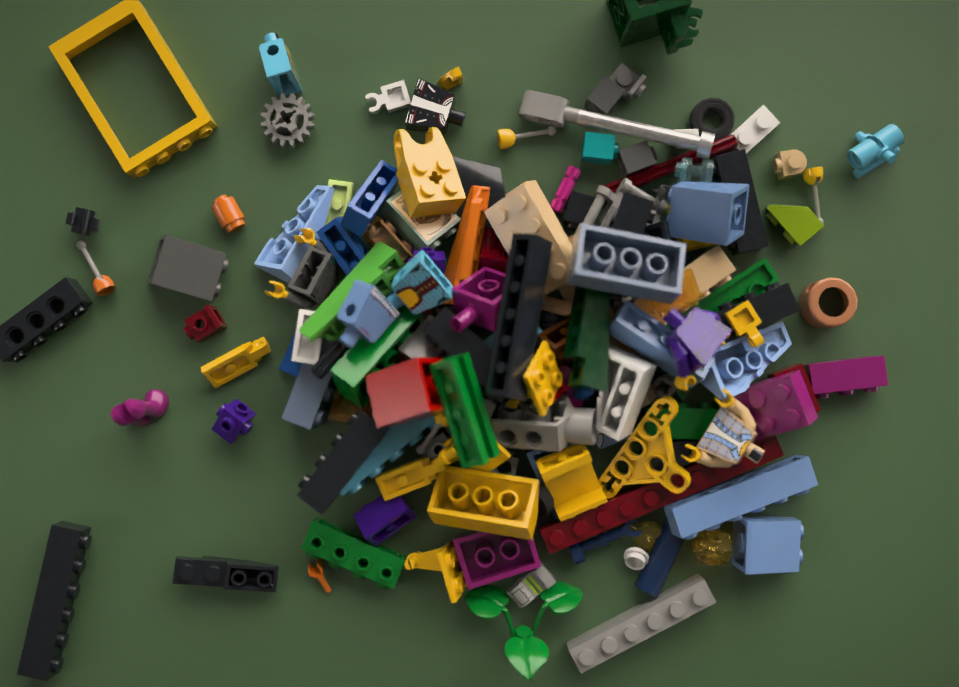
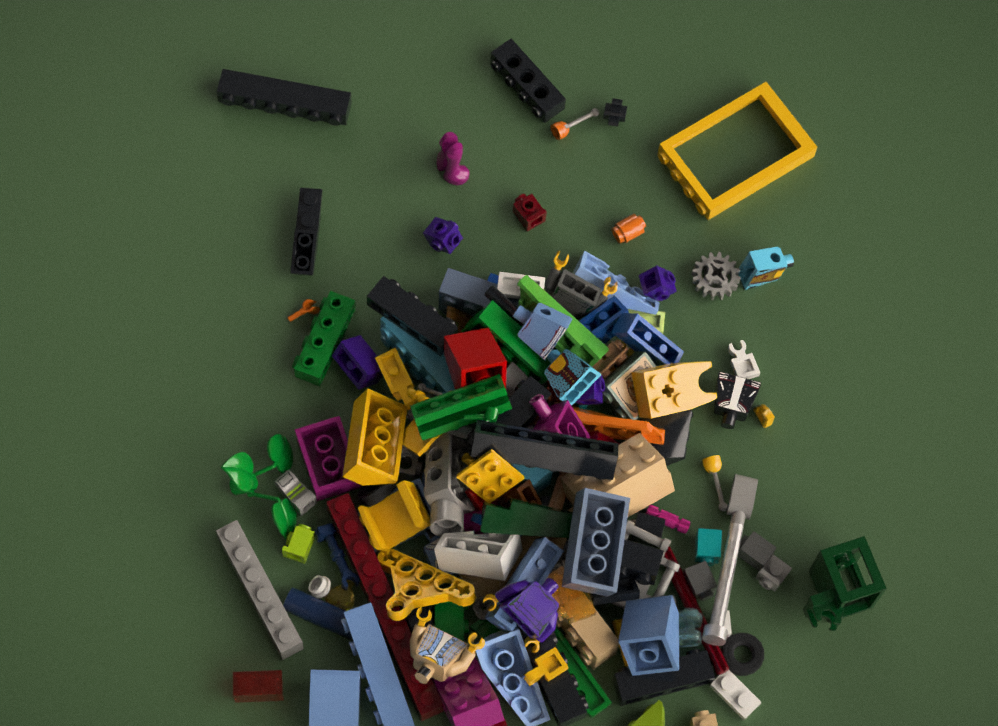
camera: 80 degrees right, 20 degrees down
(187, 267) = (577, 196): dark grey slope -> none
(235, 362) = (495, 237): yellow hinge -> none
(297, 184) = (657, 283): none -> dark purple brick
(444, 560) = (317, 411): yellow plate -> none
(480, 377) = (490, 415): none -> green hand
(589, 580) = (299, 543): none -> lime brick
(712, 547) = (331, 653): clear yellow brick -> none
(744, 623) = (258, 686): none -> clear red brick

